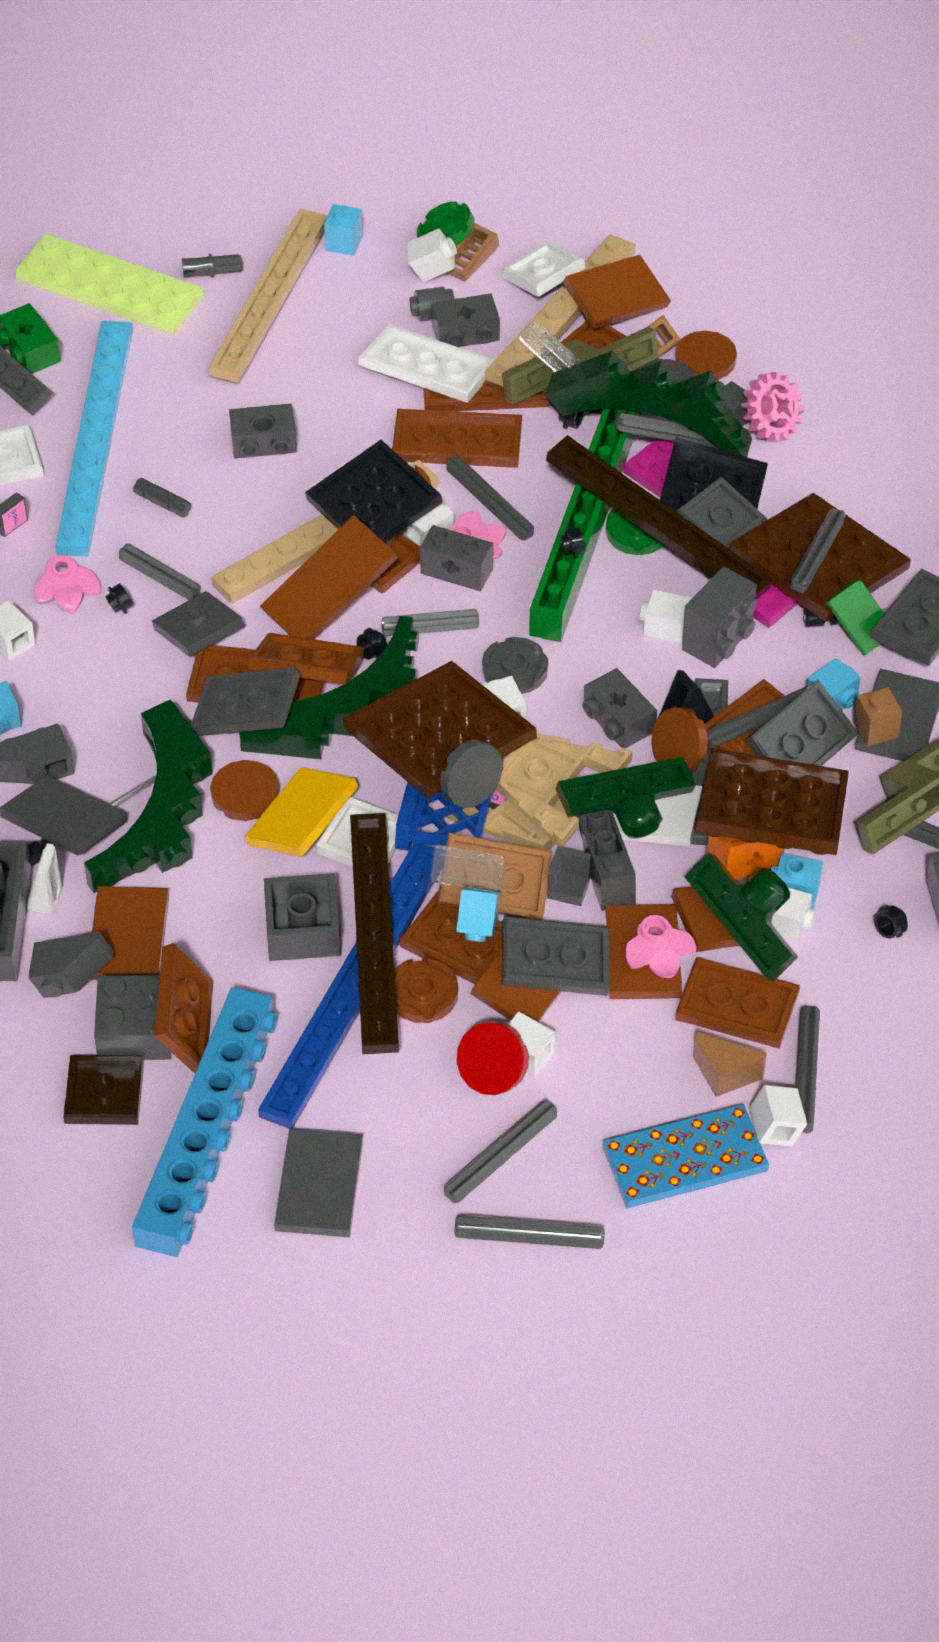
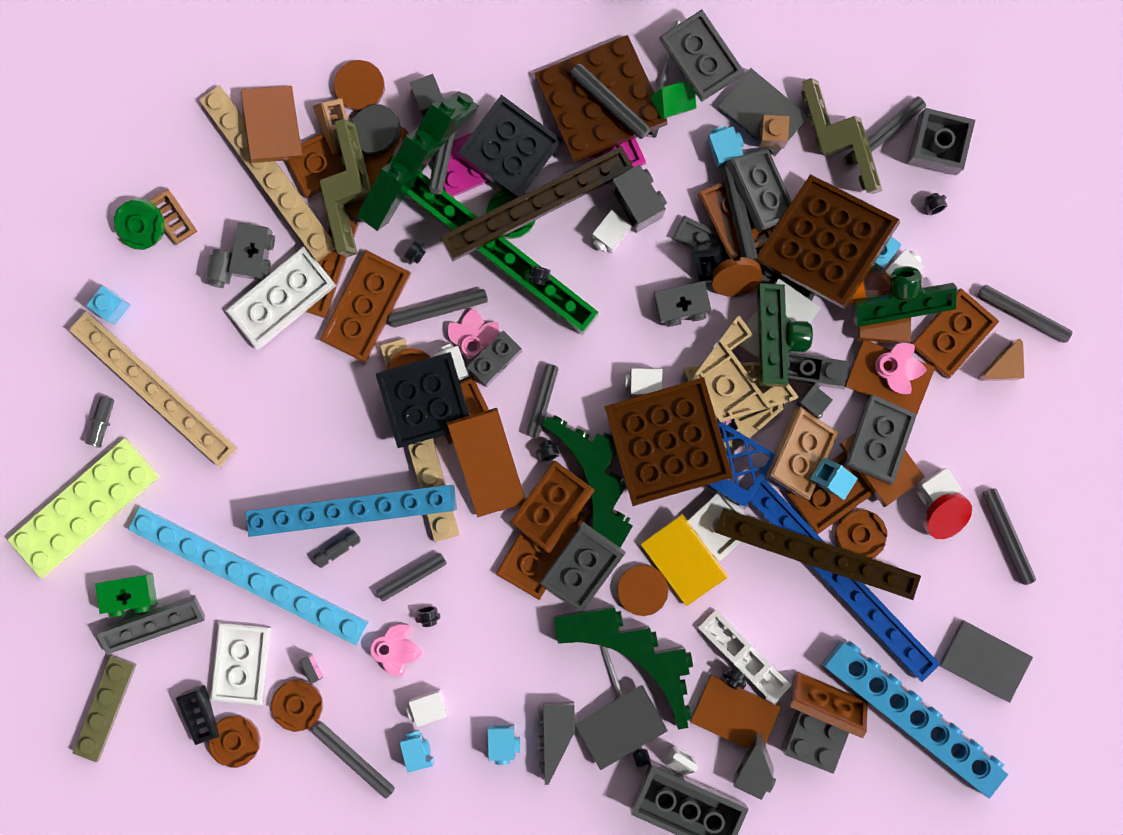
camera: 65 degrees left, 35 degrees up
(103, 1090) = (858, 775): dark brown tile -> none
(173, 907) = (735, 678): none -> black plate
(198, 623) = (478, 568): dark grey plate -> none
(210, 909) = (745, 657): none -> white slope
(214, 485) = (351, 510): none -> dark azure brick
(262, 430) = (292, 460): dark grey brick -> none
(302, 917) = (782, 596): dark grey brick -> none
(431, 255) = (170, 249): white brick -> none
(467, 868) = (800, 473): clear tile -> none
(471, 773) = (728, 439): dark grey tile -> none
(516, 658) = (605, 356): dark grey tile -> none
(529, 1232) = (1076, 543): dark grey axle -> none
(538, 454) = (415, 253): none -> black plate
(543, 268) = (219, 168): white tile -> none
(548, 347) = (340, 210): clear tile -> none
(685, 1156) = (1058, 420): dark azure tile -> none
(722, 512) = (541, 153): dark grey tile -> none
(773, 406) = (448, 64): bright pink gear -> none
(778, 1115) = (1061, 351): white brick -> none

